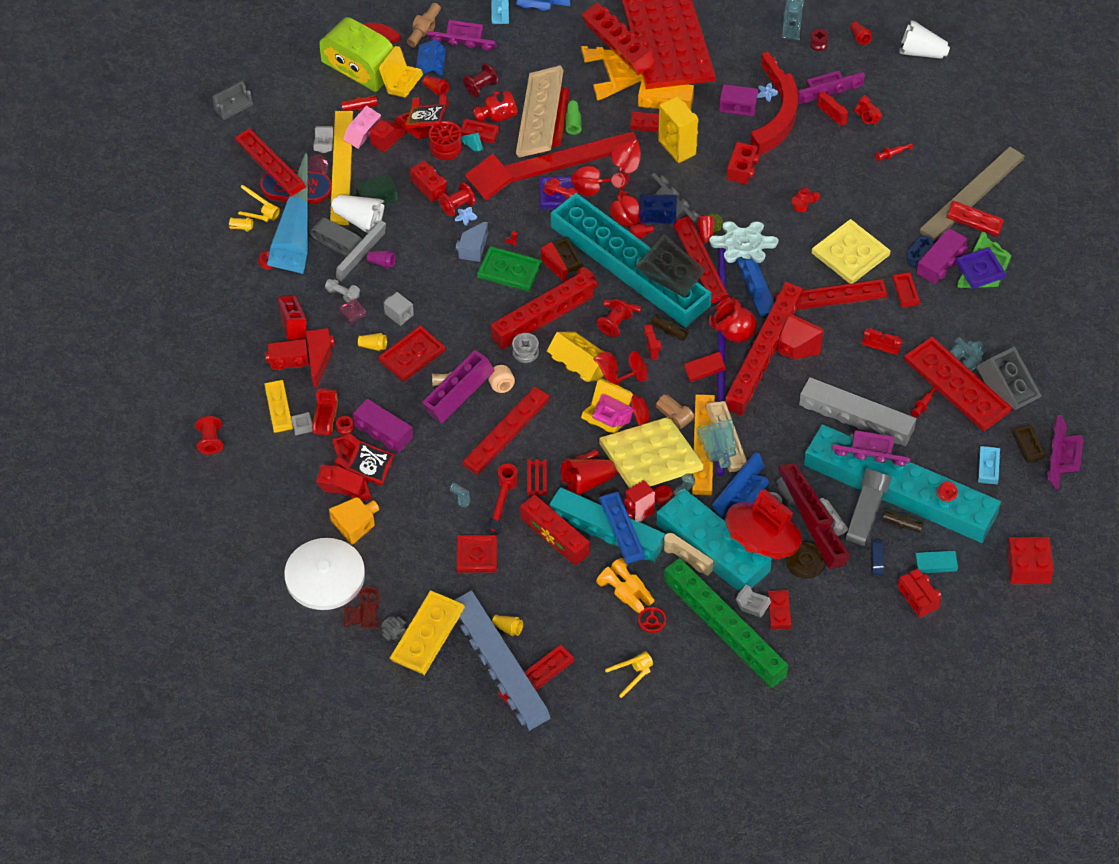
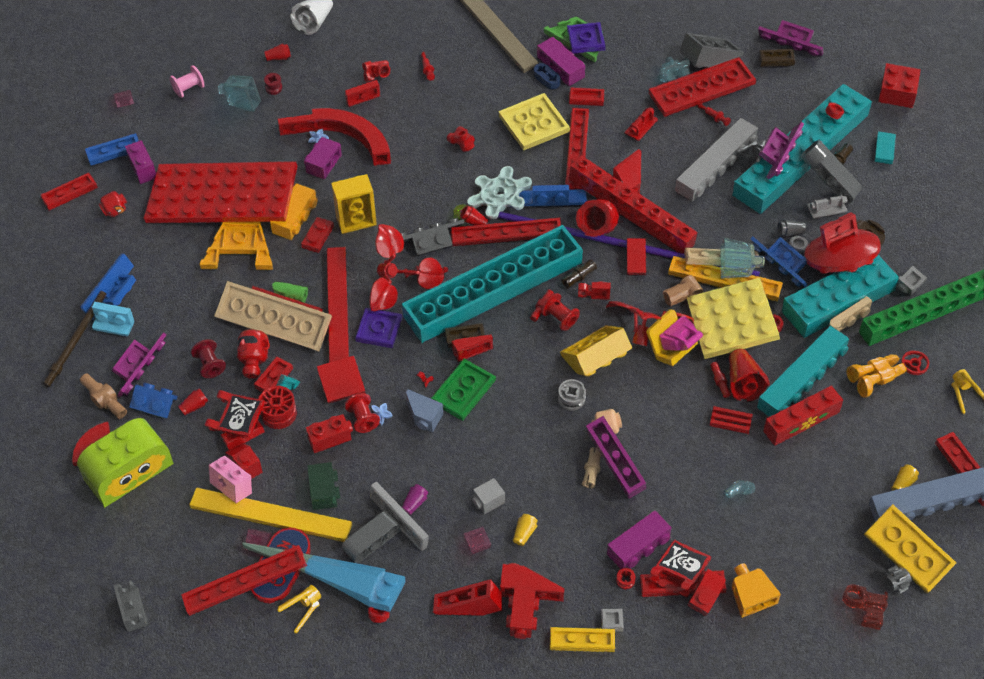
camera: 75 degrees left, 0 degrees up
(238, 223) = (316, 630): yellow pin -> none
(323, 139) = (228, 524): light grey bracket -> none
(324, 573) = (812, 634): white dish -> none
(325, 411) = (610, 592): red animal -> none
(349, 294) = (452, 537): light grey bar -> none
(359, 103) = (188, 479): red pin -> none
(359, 211) = (351, 502): white cone -> none
(397, 76) = (172, 429): yellow bracket -> none
(412, 353) = (547, 498): red tile -> none
(476, 553) = (812, 490): red tile -> none
(505, 484) = (730, 449): red piece -> none
(506, 430) = (668, 434): red plate -> none
(542, 310) = (532, 370): red brick -> none
(553, 186) = (379, 326): red bar -> none
(590, 275) = (498, 325): red cylinder -> none
(618, 38) = (222, 228): red brick -> none
(622, 527) = (819, 356): blue tile -> none
(640, 230) = (454, 269): red cylinder -> none
(640, 501) = (791, 337): red brick -> none
(658, 208) = (440, 244): clear blue bracket -> none
(670, 266) = (527, 245): clear smoke slope -> none
(688, 482) = (772, 297): clear light blue arm -> none
(742, 163) = (401, 173): red brick -> none
(779, 610) = (925, 266): red plate -> none
(815, 516) = (827, 212): dark red slope -> none
(829, 83) = (331, 89): magenta bracket -> none
(877, 557) = (877, 183): dark blue beam -> none
(919, 592) = (919, 164): red brick -> none
(975, 218) = (525, 30): red tile -> none
(988, 465) = (793, 88): medium azure plate -> none

